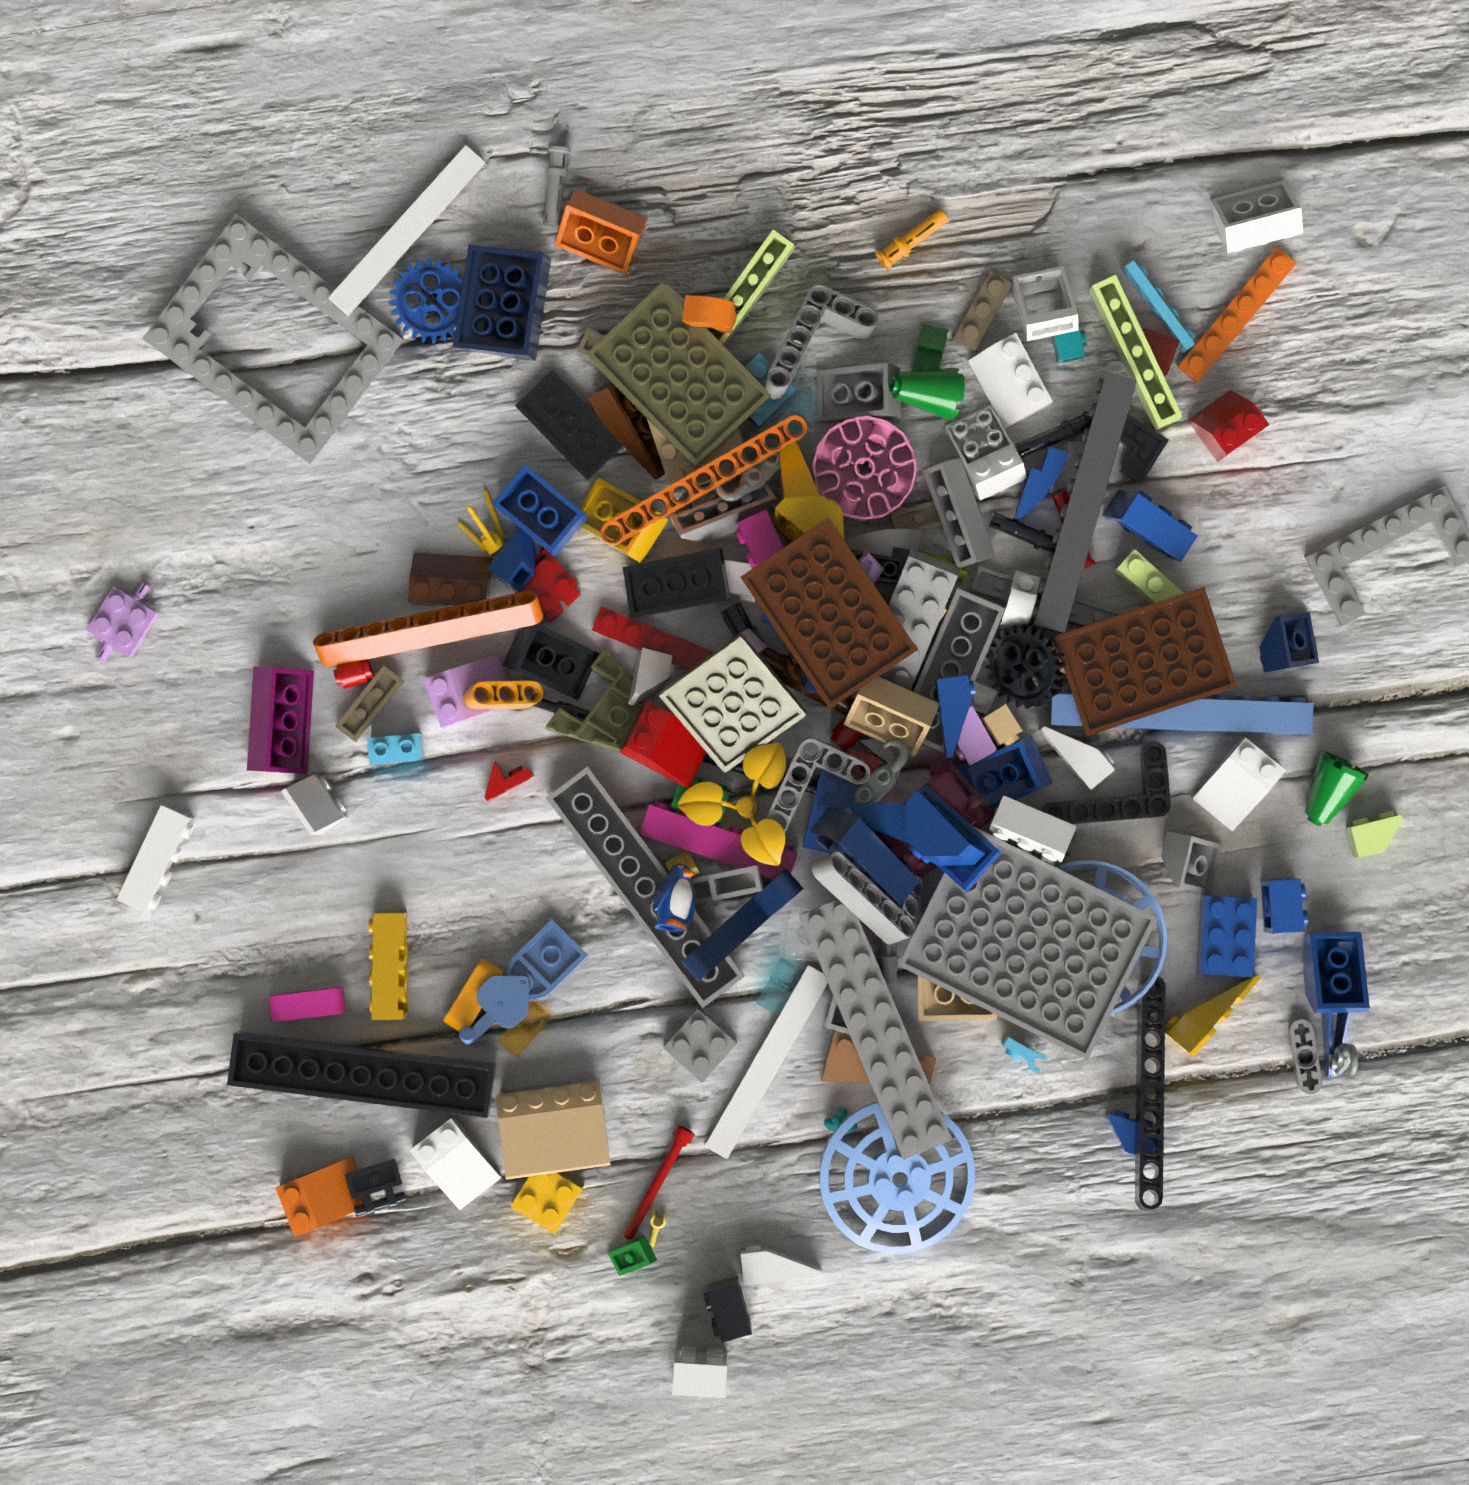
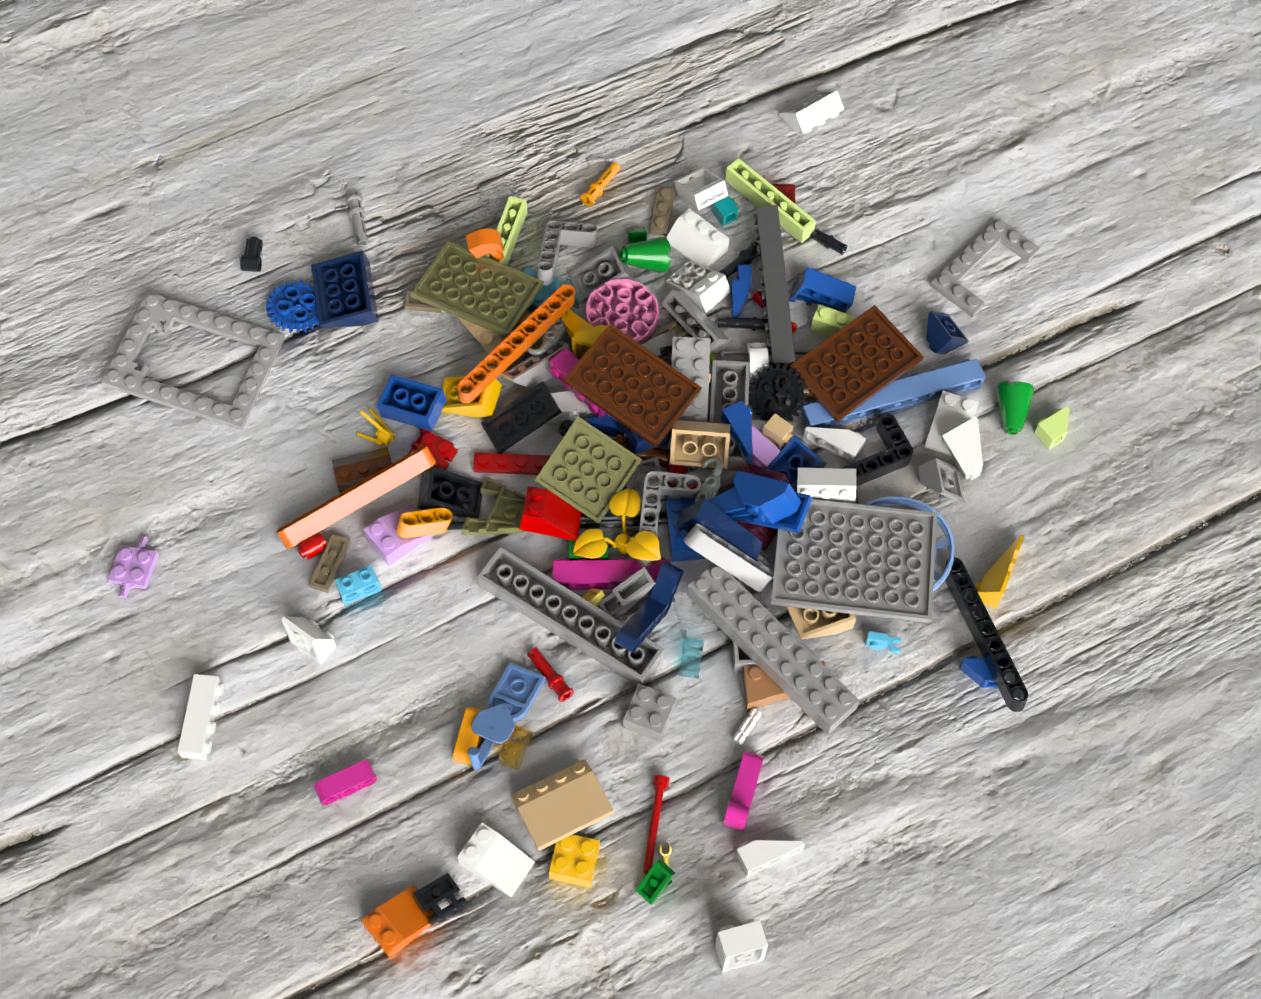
camera: 25 degrees left, 25 degrees down
(280, 720) = (266, 592): magenta slope -> none
(361, 1074) = (402, 816): black brick -> none
(389, 966) = (400, 733): yellow wedge -> none
(391, 202) = (252, 259): none -> black piece
(406, 230) = (266, 271): white tile -> none
(499, 784) = (442, 585): red slope -> none
(515, 561) = (403, 440): blue slope -> none
(569, 425) = (414, 351): black plate -> none
(599, 961) = (555, 680): none -> red pin
(600, 231) = (397, 236): orange slope -> none
(627, 426) = (451, 332): reddish brown wedge -> none
(650, 674) = (521, 477): white slope -> none
(674, 900) = (594, 609): animal -> none
(729, 1309) = (743, 893): black brick -> none
(767, 1062) = (702, 713): white tile -> none
(777, 1182) = (743, 791): none -> dark pink beam
(813, 1100) = (746, 726): none -> white axle
(832, 1123) = (773, 734): teal plant -> none
(886, 1193) = (826, 766): light blue dish -> none
(1145, 447) = (798, 251): black plate -> none
(1153, 297) = (772, 173): medium azure plate -> none
(1193, 444) = (829, 241): none -> black pin
(1226, 935) = (988, 519): blue brick -> none
(1228, 424) = (850, 220): red slope -> none
(1235, 834) = (965, 448): none -> white slope
(1236, 315) = (823, 167): orange plate -> none
(1283, 905) = (1017, 485): blue brick -> none
(1316, 1074) = (1091, 591): light grey beam -> none
(1336, 984) = (1077, 519): blue slope -> none

